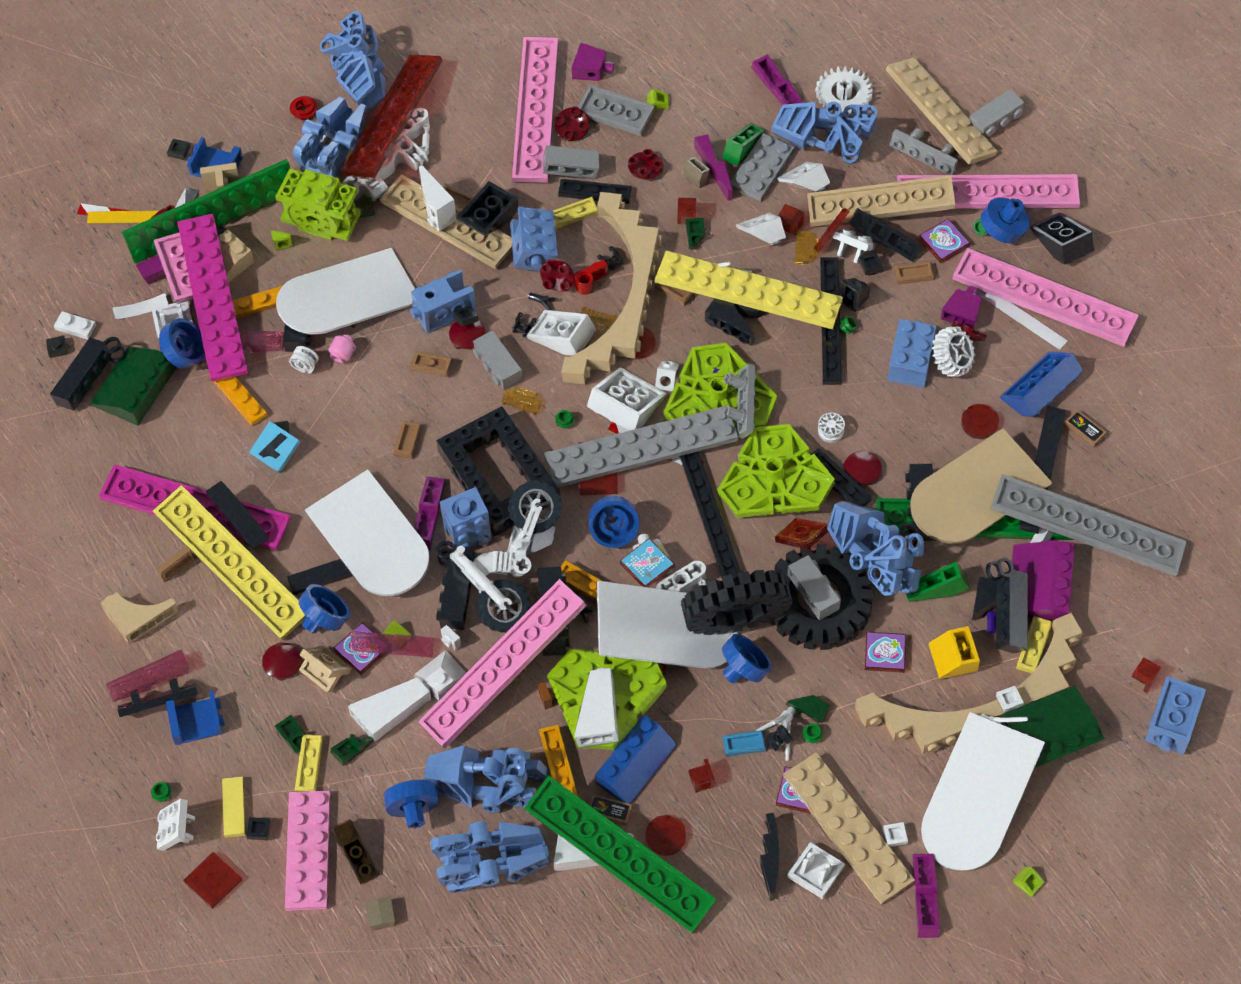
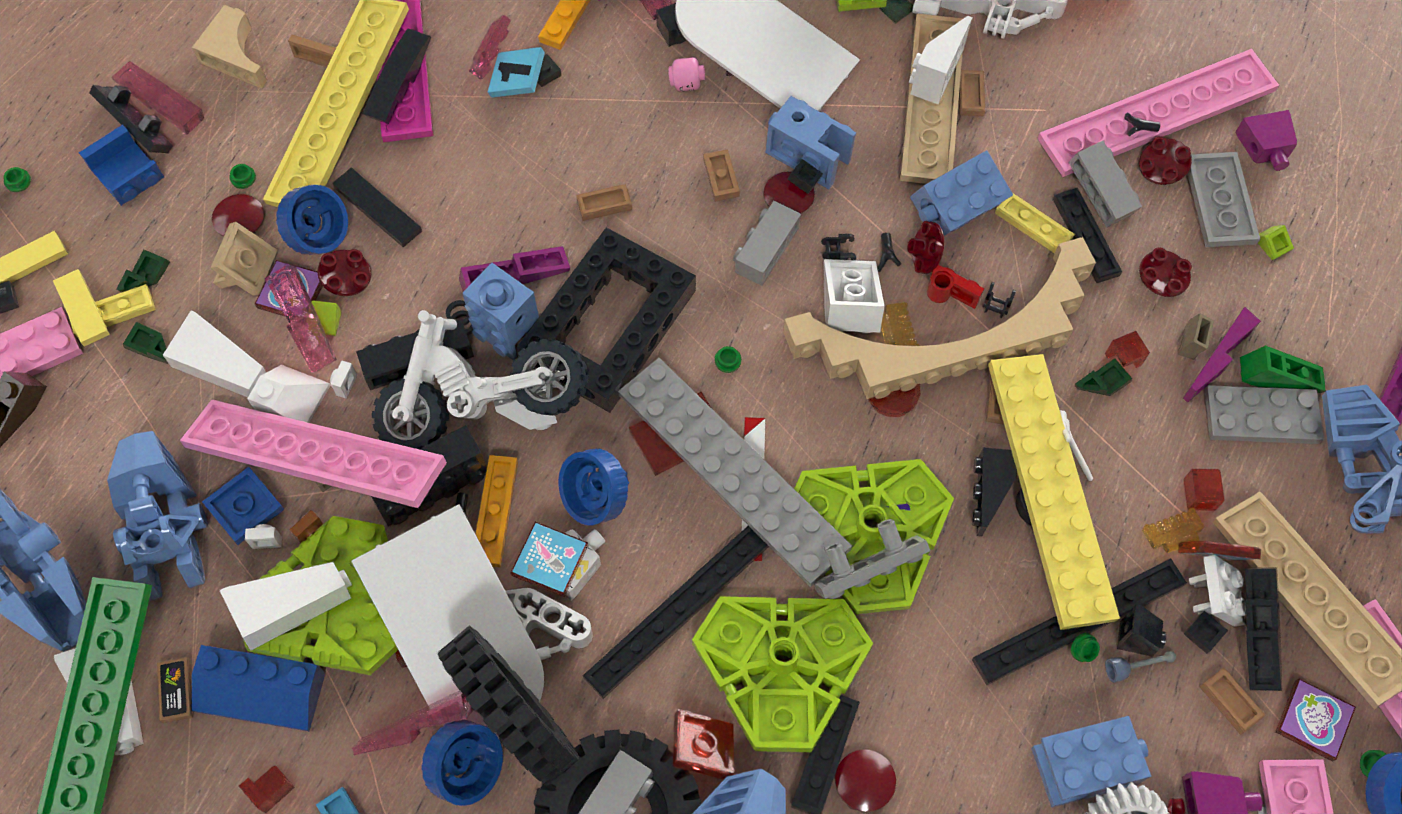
camera: 60 degrees right, 5 degrees up
(240, 454) = (488, 48): none -> clear pink hinge
(250, 646) = (242, 176): none -> green plate
(300, 777) = (81, 307): none -> light yellow tile
(303, 360) = (645, 45): white wheel -> none
(368, 609) = (344, 272): none -> dark red dish
(371, 536) = (443, 228): white piece -> none
(411, 800) = (76, 442): blue piece -> none
(489, 209) = (970, 127): black slope -> none
(507, 728) = (243, 504): none -> blue plate
(524, 396) = (737, 299): clear yellow piece -> none
(536, 722) = (263, 537): none -> white plate
(542, 121) = (1140, 124): none -> black bar
(557, 757) = (207, 598): light orange plate -> none
(625, 399) = (797, 417): white slope -> none
(665, 835) = (163, 782): clear red tile -> none
(668, 369) = (869, 446): white bracket -> none
(709, 684) = (406, 730): none -> clear pink slope
(764, 227) = (1164, 461): white slope -> none
(807, 176) = (1285, 478): white slope -> none
(830, 427) = (904, 704): white wheel -> none
(868, 315) = (1119, 669): none -> sand blue hinge

